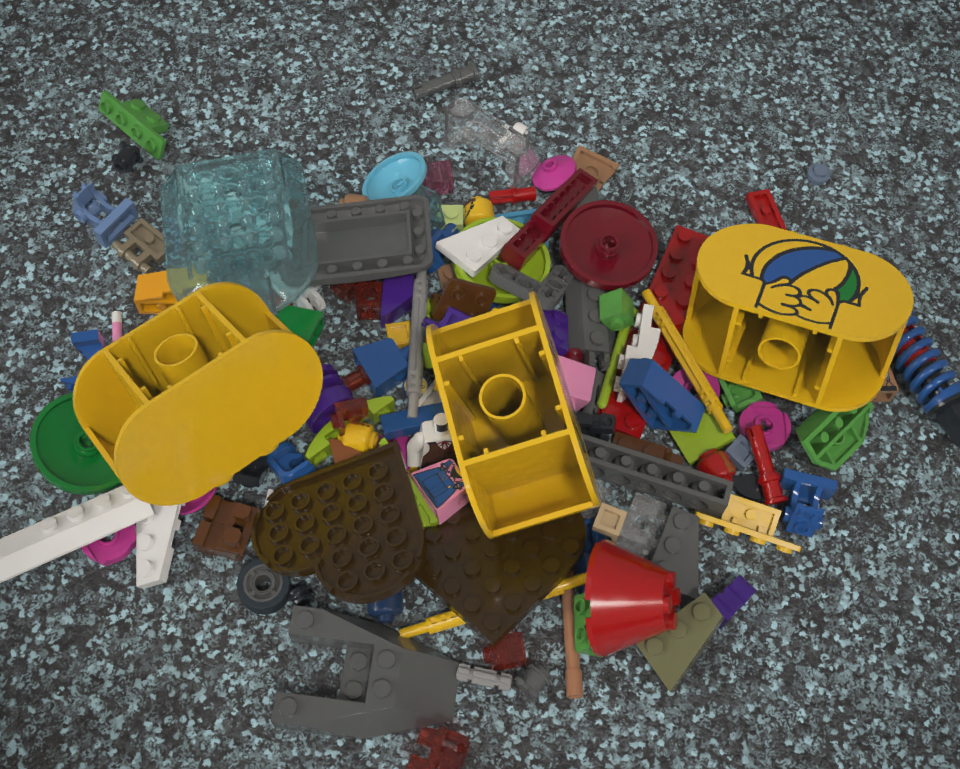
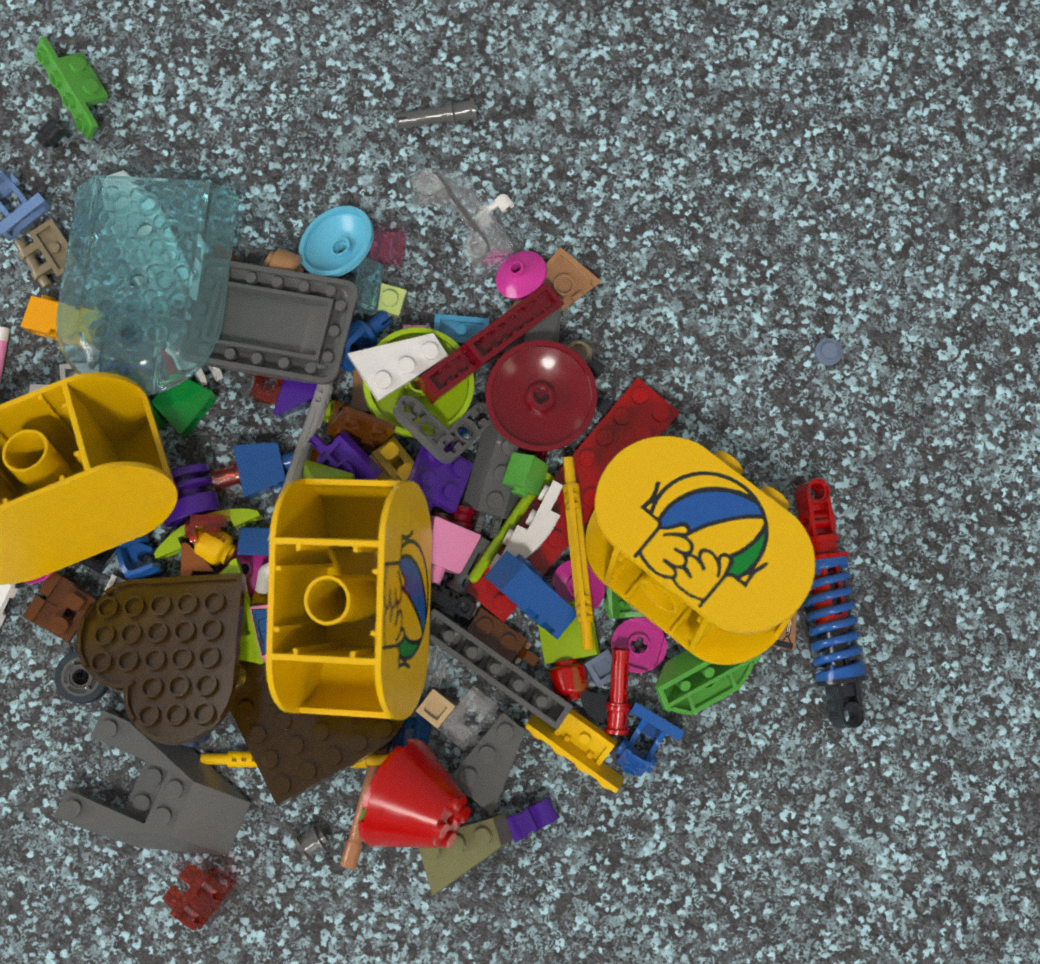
camera: 20 degrees right, 20 degrees up
(300, 596) = (113, 697): black bush -> none
(399, 333) = (289, 431): yellow tile -> none
(477, 209) = (419, 307): yellow head -> none
(484, 677) = (268, 824): light grey axle -> none
(507, 653) = (296, 810): clear red brick -> none
(513, 195) = (465, 291): red axle -> none
(764, 209) = (744, 401): red plate -> none

